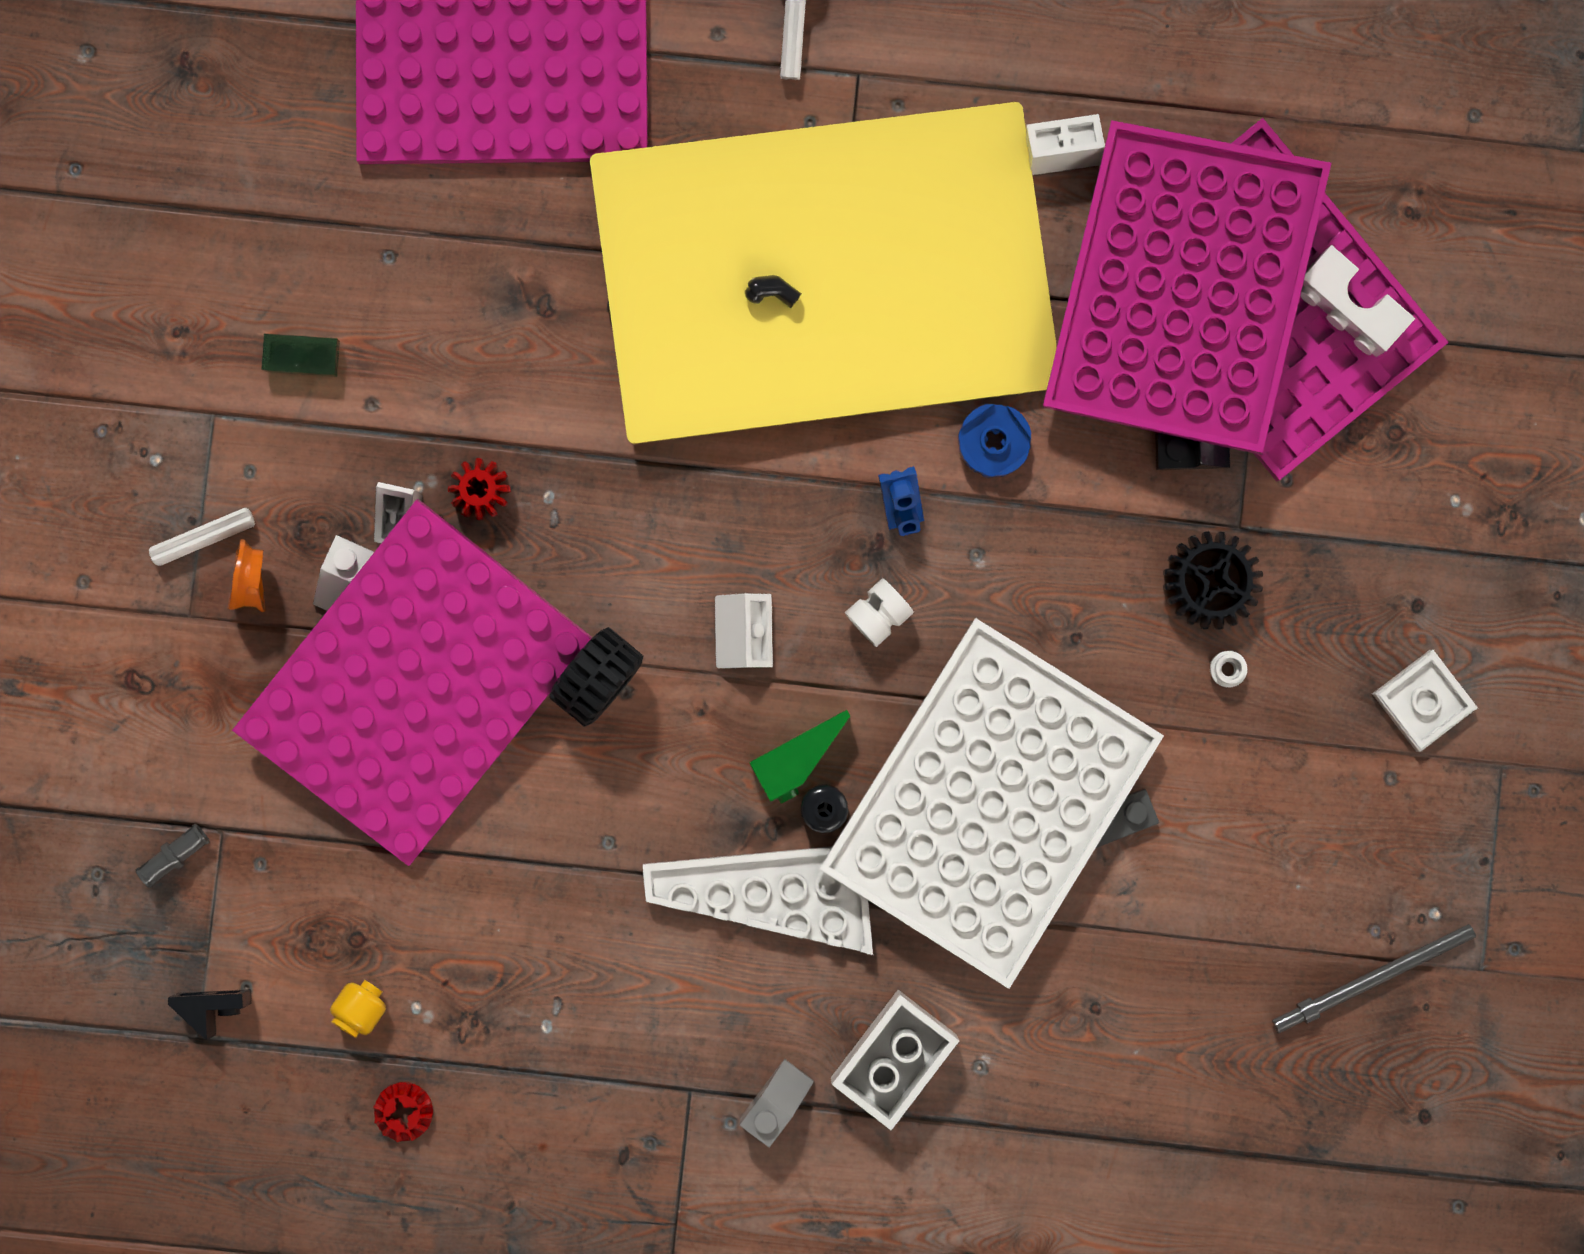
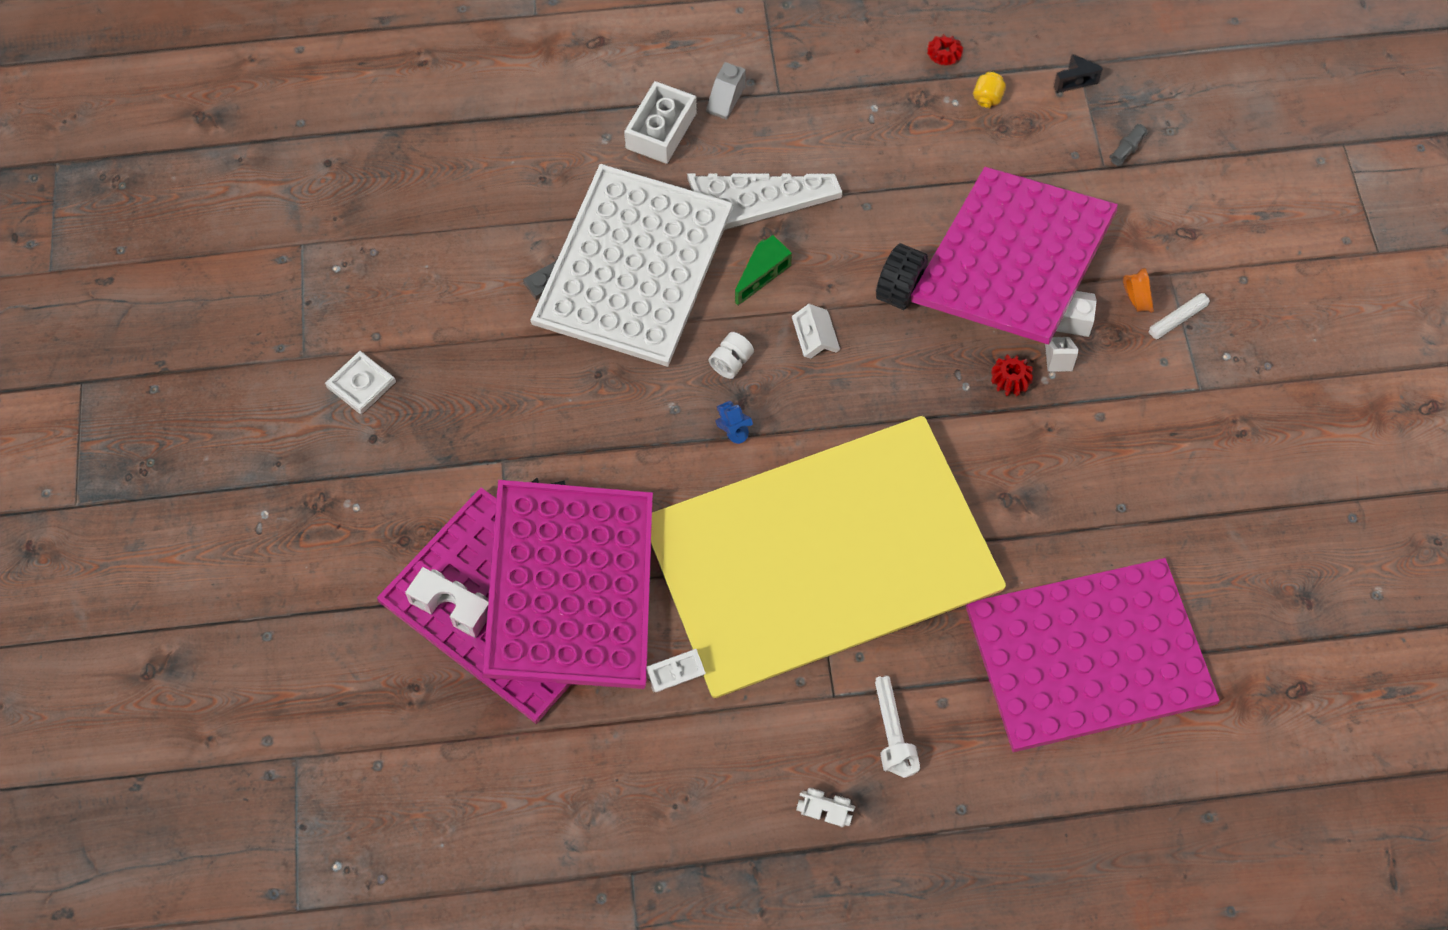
camera: 170 degrees right, 25 degrees down
(300, 355) = (1157, 430): clear green plate -> none
(771, 286) = (856, 528): black arm -> none
(826, 794) = (737, 241): black head -> none
(1015, 444) = (679, 488): blue plate -> none
(1229, 588) = (523, 429): black gear -> none
(1238, 663) = (494, 367): white plate -> none
(1310, 1010) = (408, 200): dark grey bar -> none

